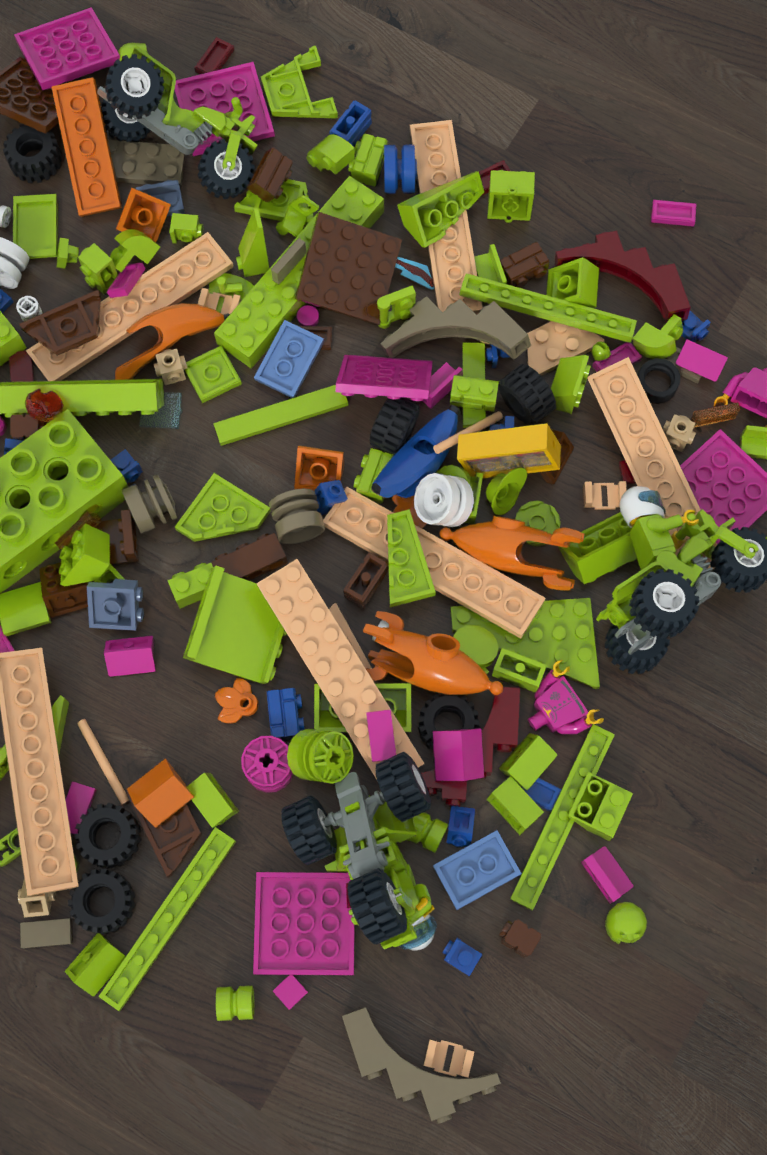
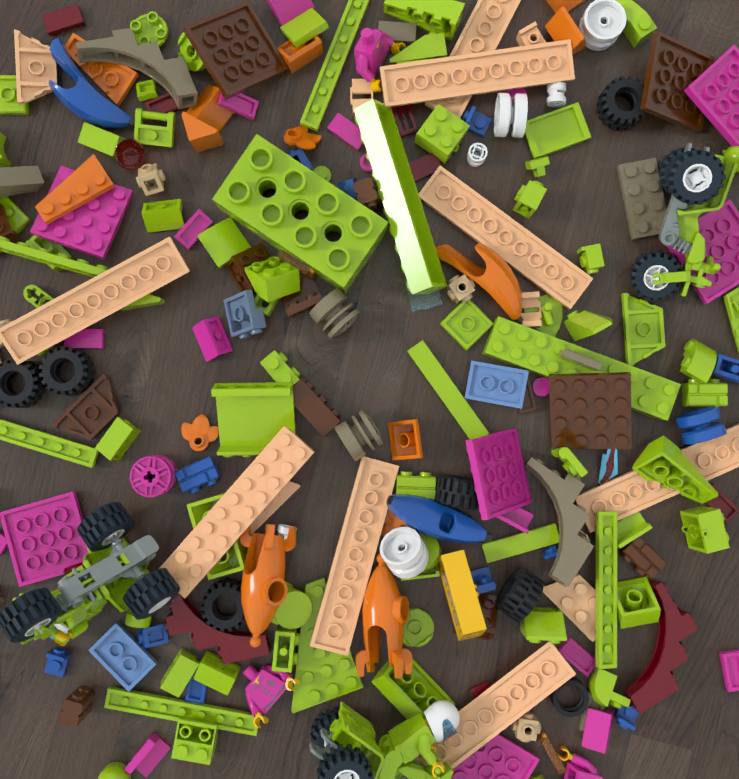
camera: 75 degrees right, 15 degrees up
(43, 406) = (383, 201): clear red hair -> none
(67, 324) = (470, 191): reddish brown wing -> none
(86, 147) = (640, 148): orange plate -> none
(103, 762) = (125, 346): light nougat bar -> none
(126, 280) = (527, 225): dark pink tile -> none
(127, 466) = (364, 281): blue bracket -> none
(133, 243) = (560, 221): lime brick -> none
(143, 214) = (590, 220): orange slope -> none
(159, 793) = (107, 399): orange slope -> none
(167, 191) = (612, 227): sand blue bracket -> none
(221, 511) = (349, 371): lime plate -> none
(270, 175) = (660, 316): reddish brown brick -> none
(296, 216) = (627, 349): lime bracket -> none
(320, 755) = (163, 518): lime wheel -> none
(329, 494) = (386, 455): blue bracket -> none
(366, 580) = (322, 506): reddish brown brick -> none
(381, 735) = (192, 561): dark pink tile -> none
(407, 564) = (342, 537): lime wing -> none
(453, 440) = (472, 553): light nougat bar -> none
(458, 754) = (197, 623): dark pink slope -> none
(474, 393) = (509, 548): lime brick -> none
(504, 490) = (432, 594): lime piece -> none
(593, 495) = (458, 685): light nougat piece -> none
(600, 351) = (579, 640): lime hinge -> none

